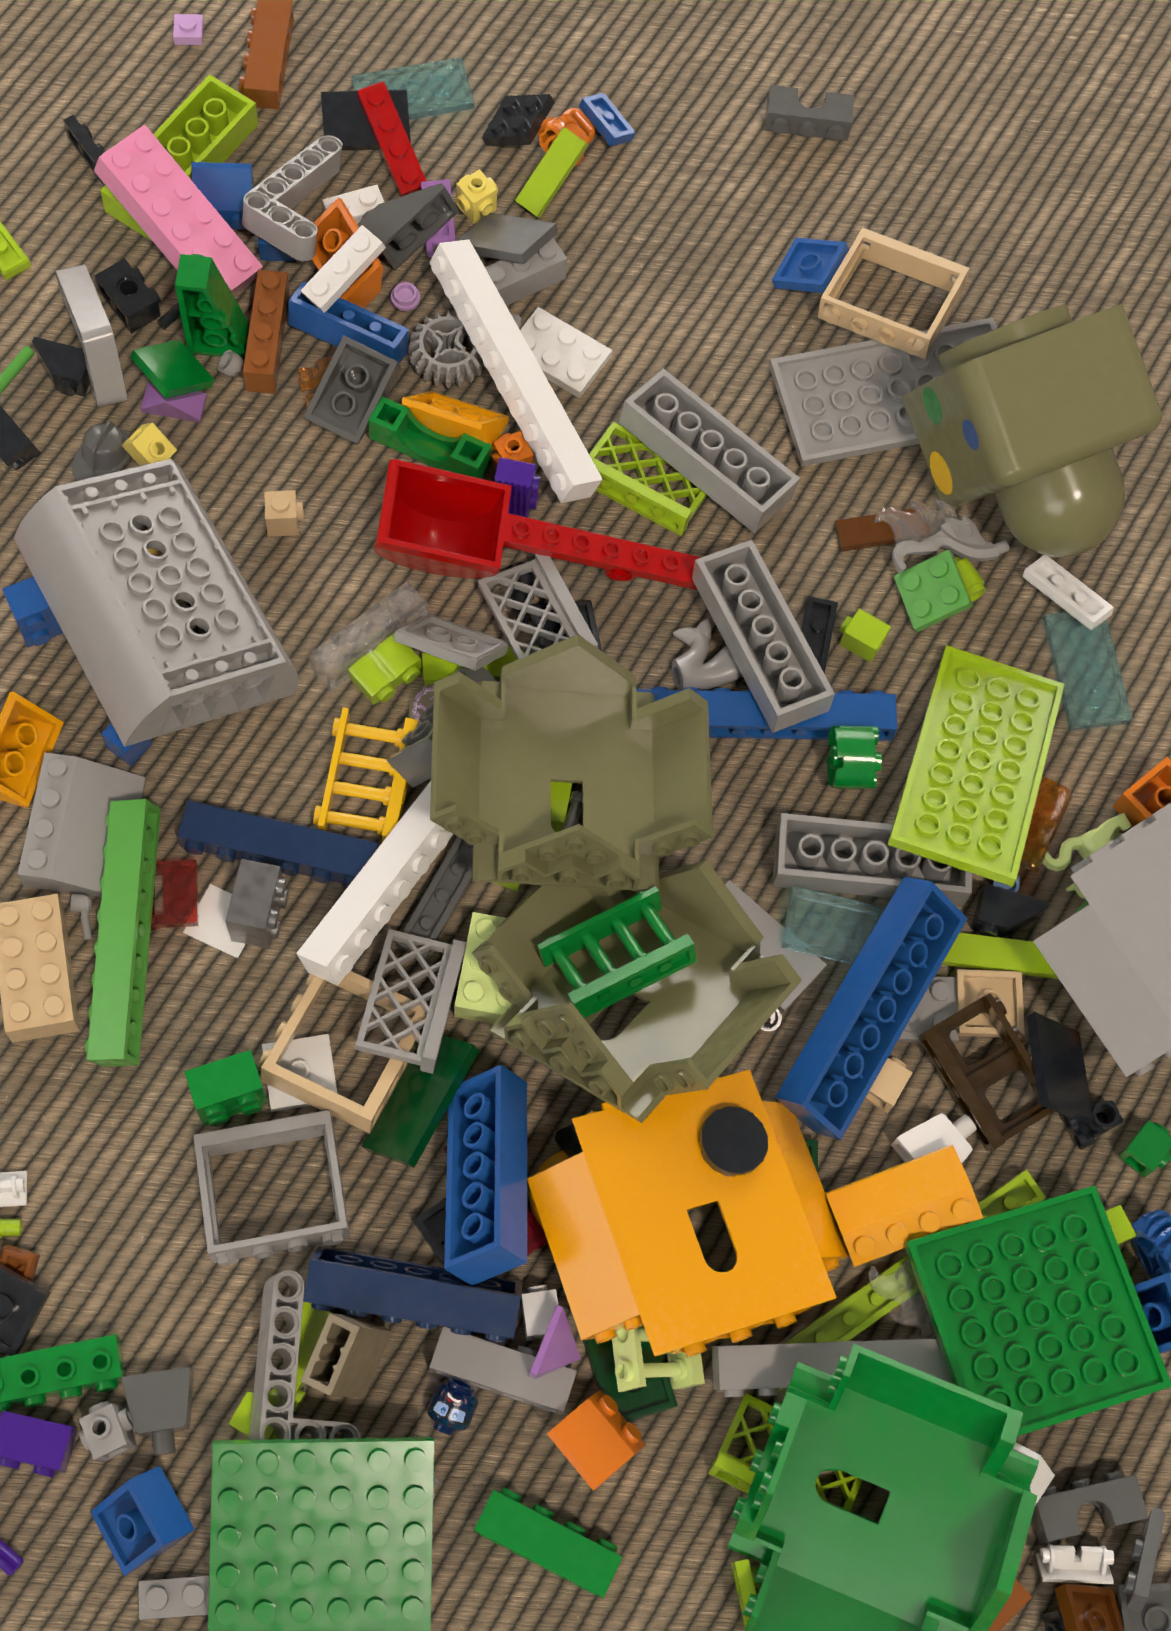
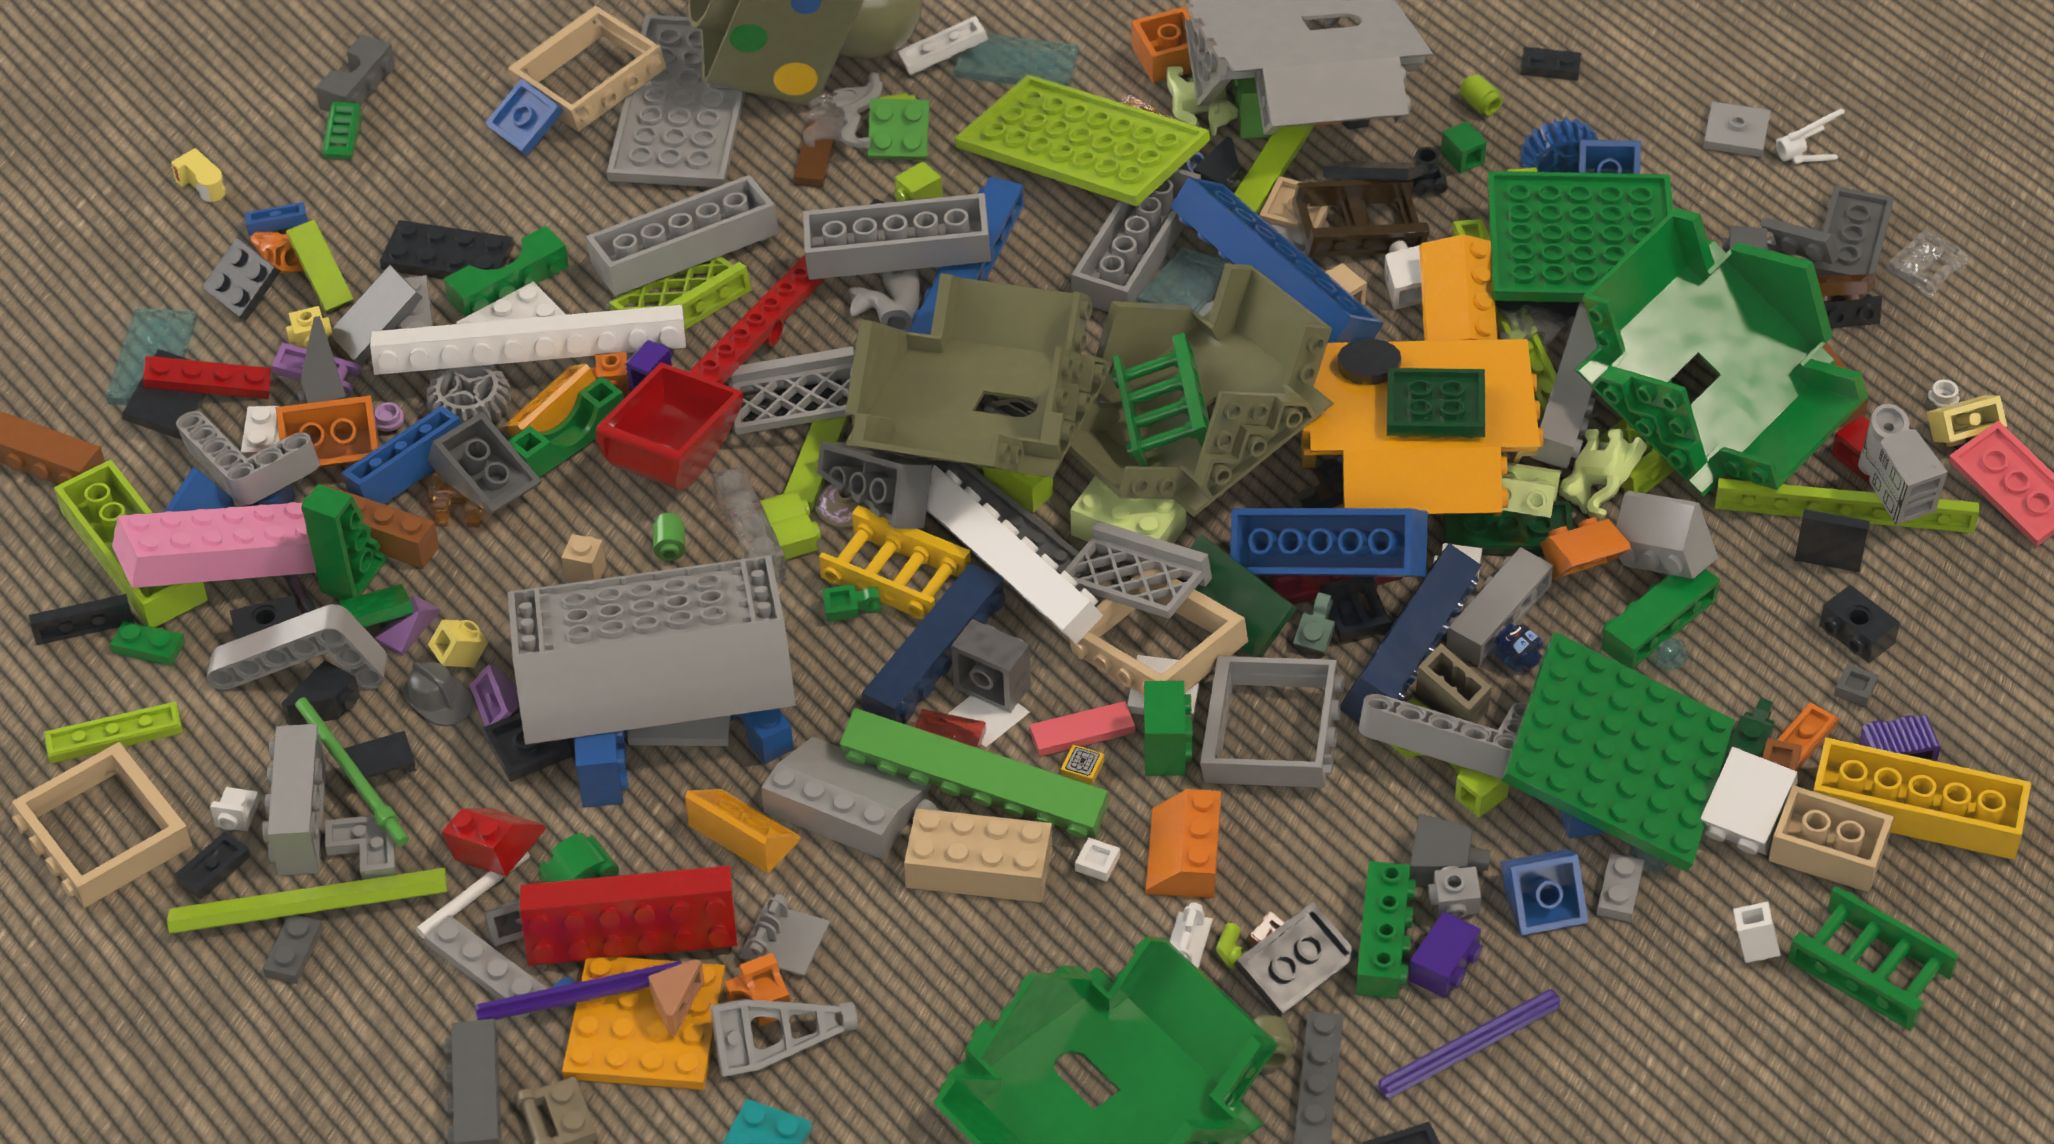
camera: 60 degrees left, 20 degrees down
(65, 1076) = (1097, 859): none -> white plate
(89, 216) = (147, 643): none -> green plate
(102, 1153) = (1184, 845): none -> orange slope
(181, 1026) = (1082, 764): none -> tile
(225, 1010) = (1082, 728): none -> coral tile
(230, 363) = (390, 558): light grey hinge -> none
(309, 750) = (845, 602): none -> green plate
(336, 573) = (669, 537): none -> bright green brick
(343, 269) = (357, 425): white plate -> none
(412, 1194) = (1315, 630): none -> sand green plate
(451, 642) = (792, 458): light grey tile -> none
(500, 1570) = (1672, 653): none -> clear light blue plate
(557, 1347) = (1492, 550): medium lavender slope -> none
(624, 269) = (443, 250): none -> black plate
(624, 1521) = (1665, 535): none -> light grey slope
(637, 43) = (201, 173): none -> light yellow leg
(640, 343) = (476, 288): none -> green arch
(680, 1228) = (1436, 402): none -> dark green plate
(722, 1427) = (1601, 464): none -> yellowish green animal
(752, 135) = (343, 120): none -> green slope
(853, 757) = (1036, 220): green brick -> none

